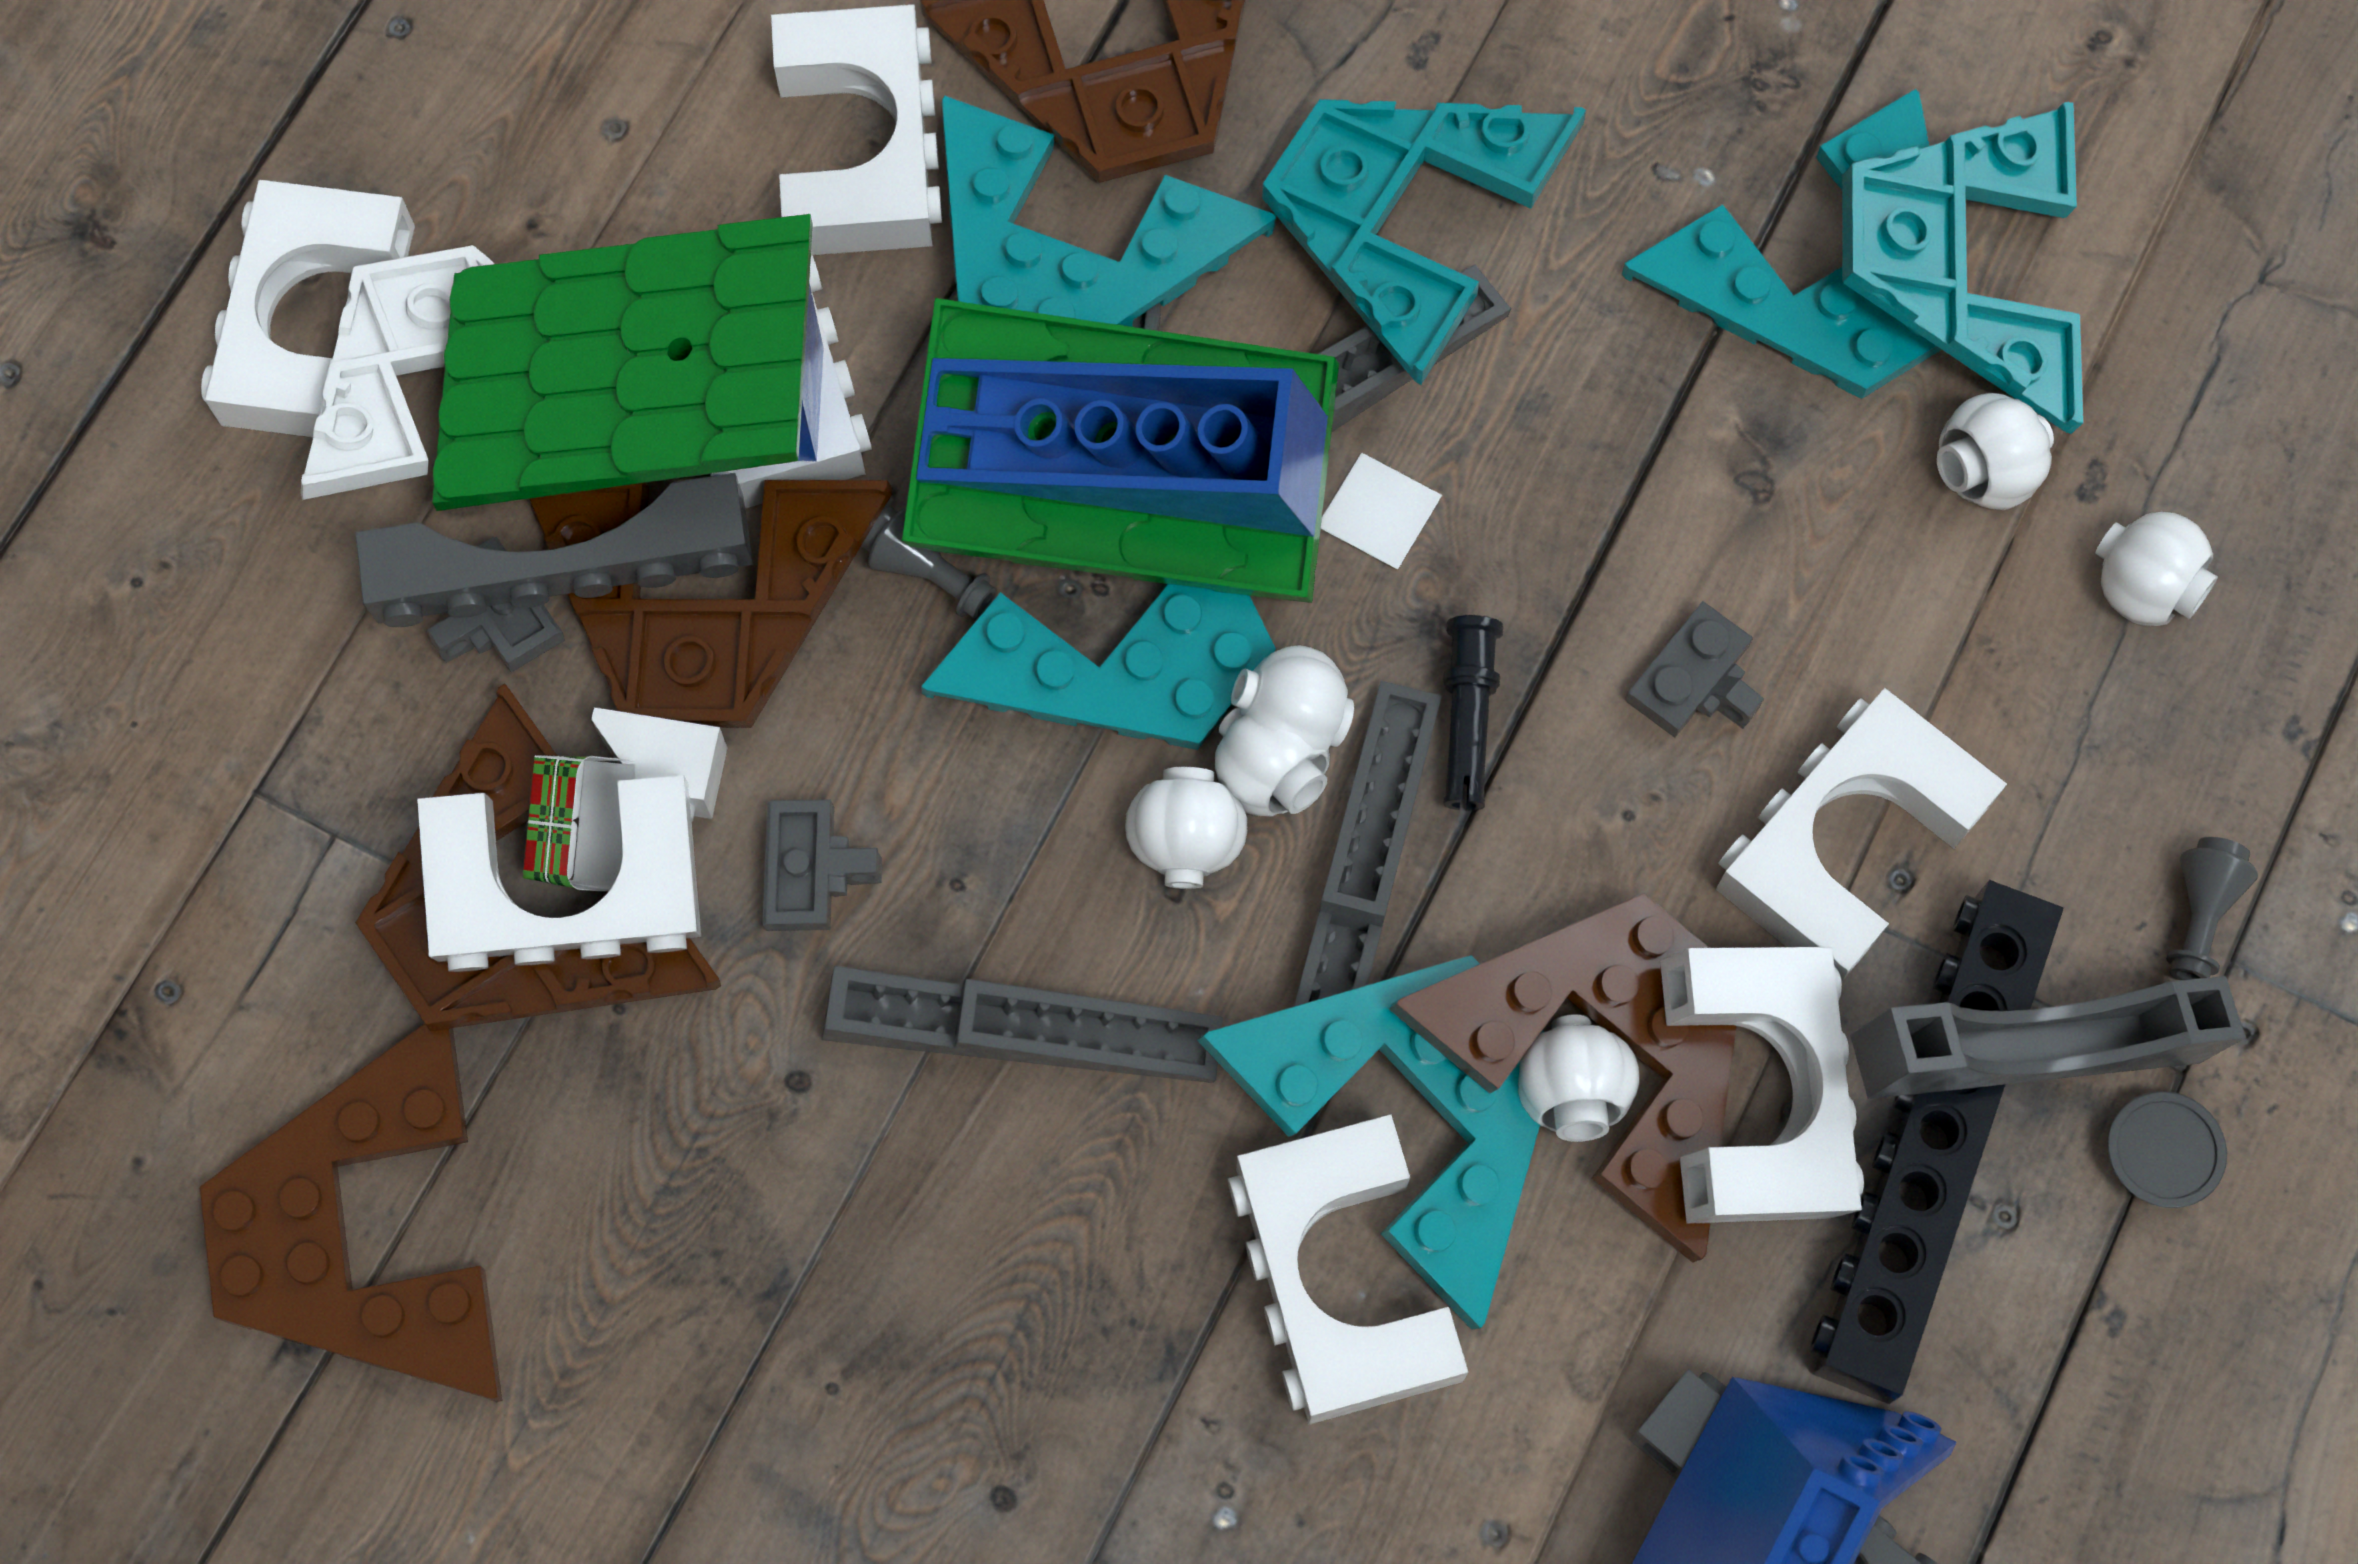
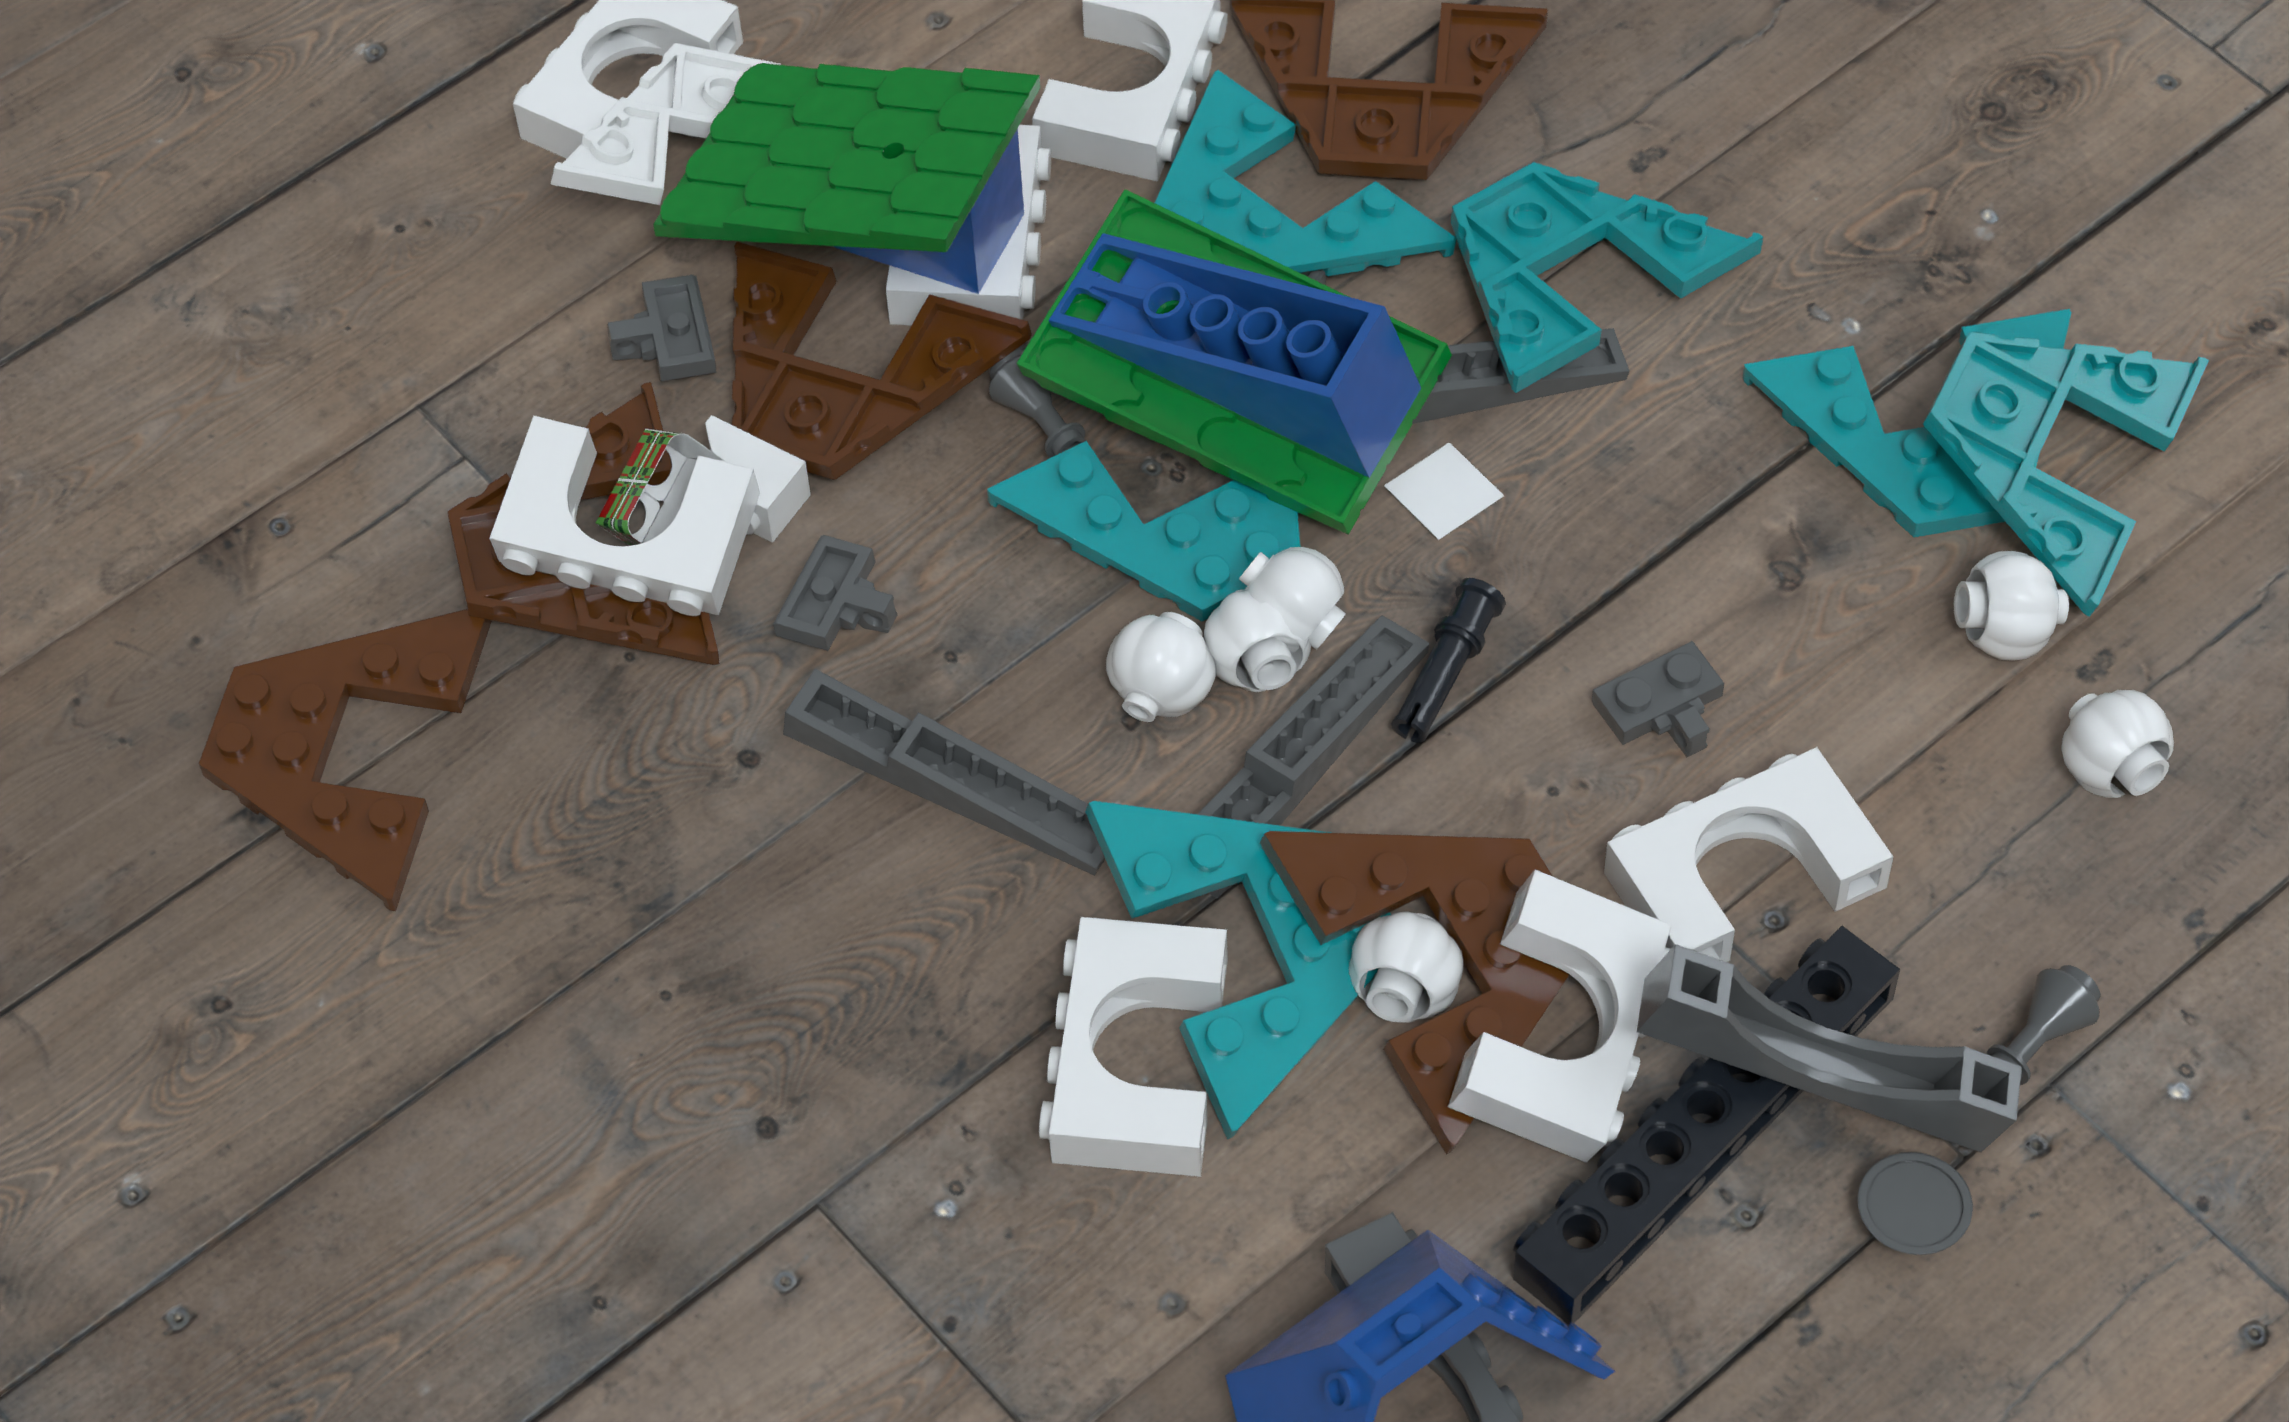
camera: 25 degrees right, 15 degrees down
(685, 531) = (841, 309): dark grey arch -> none

